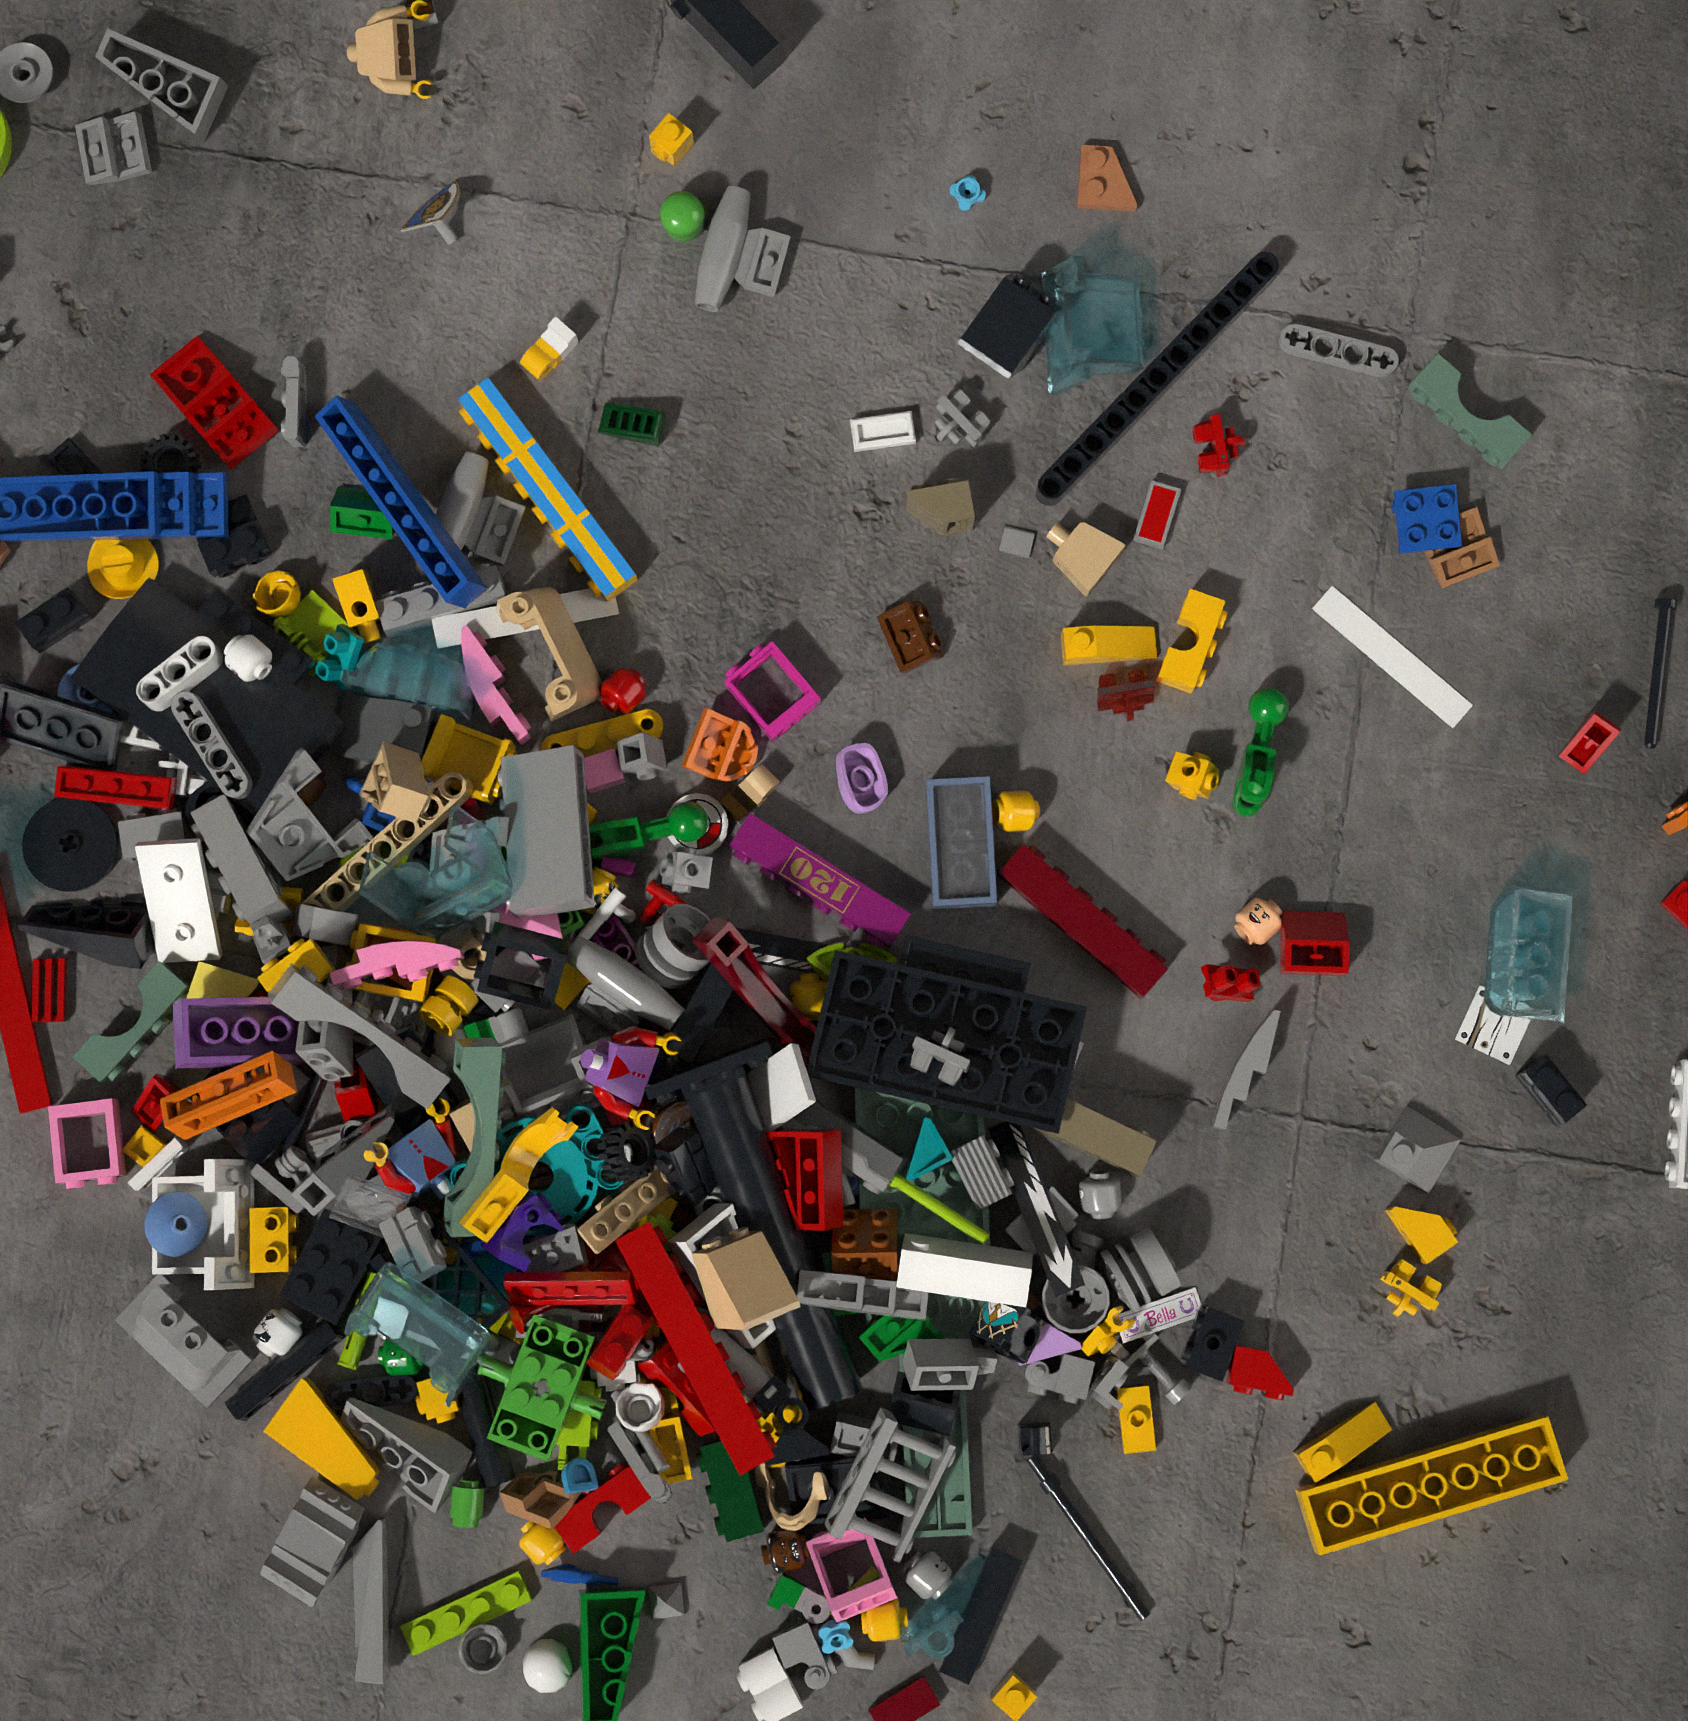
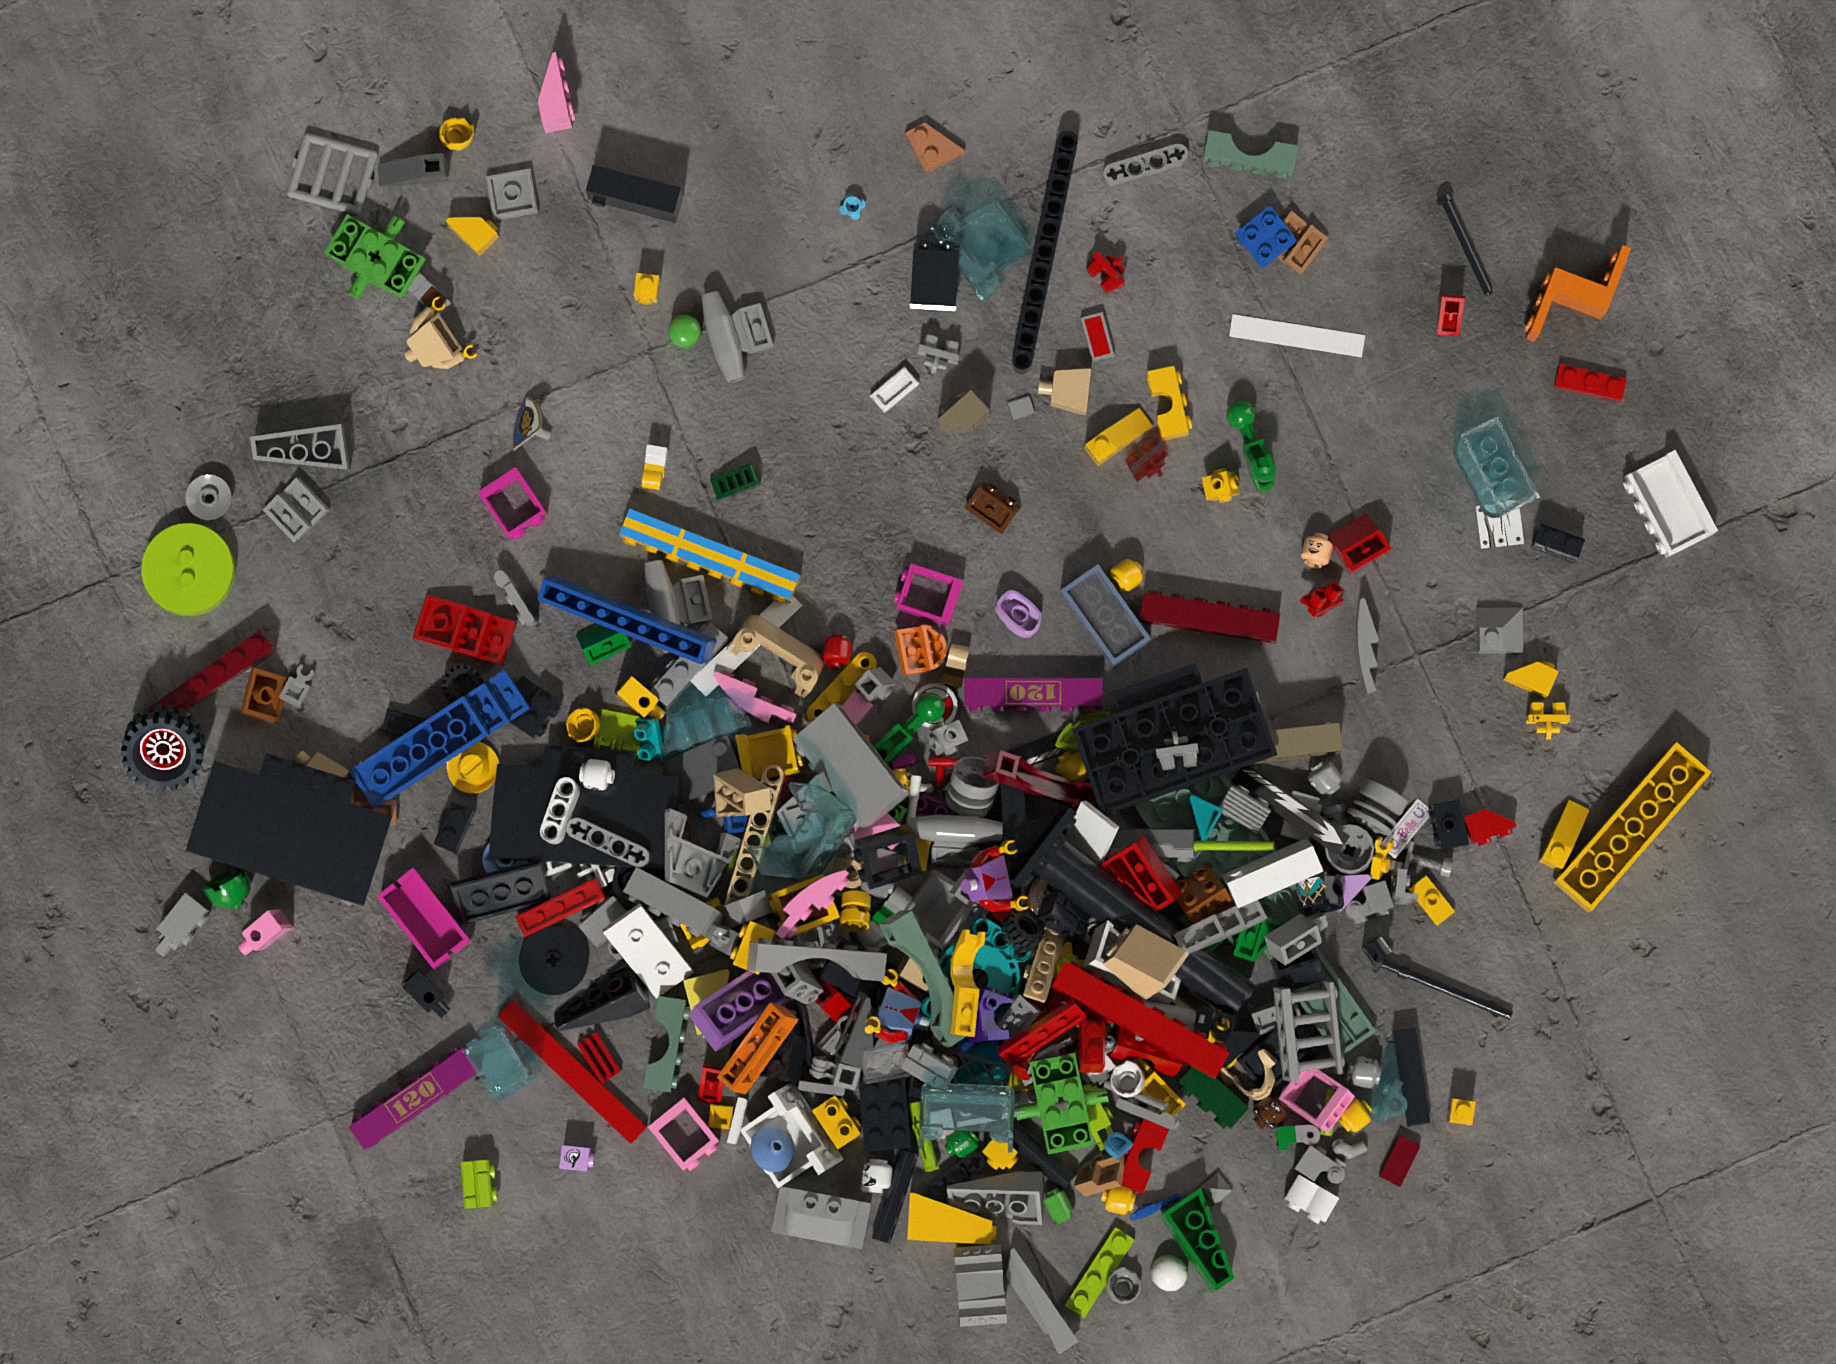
camera: 30 degrees left, 0 degrees up
(359, 262) = (501, 484): none -> dark pink window
(831, 1630) = (1328, 1139): medium azure plate -> none

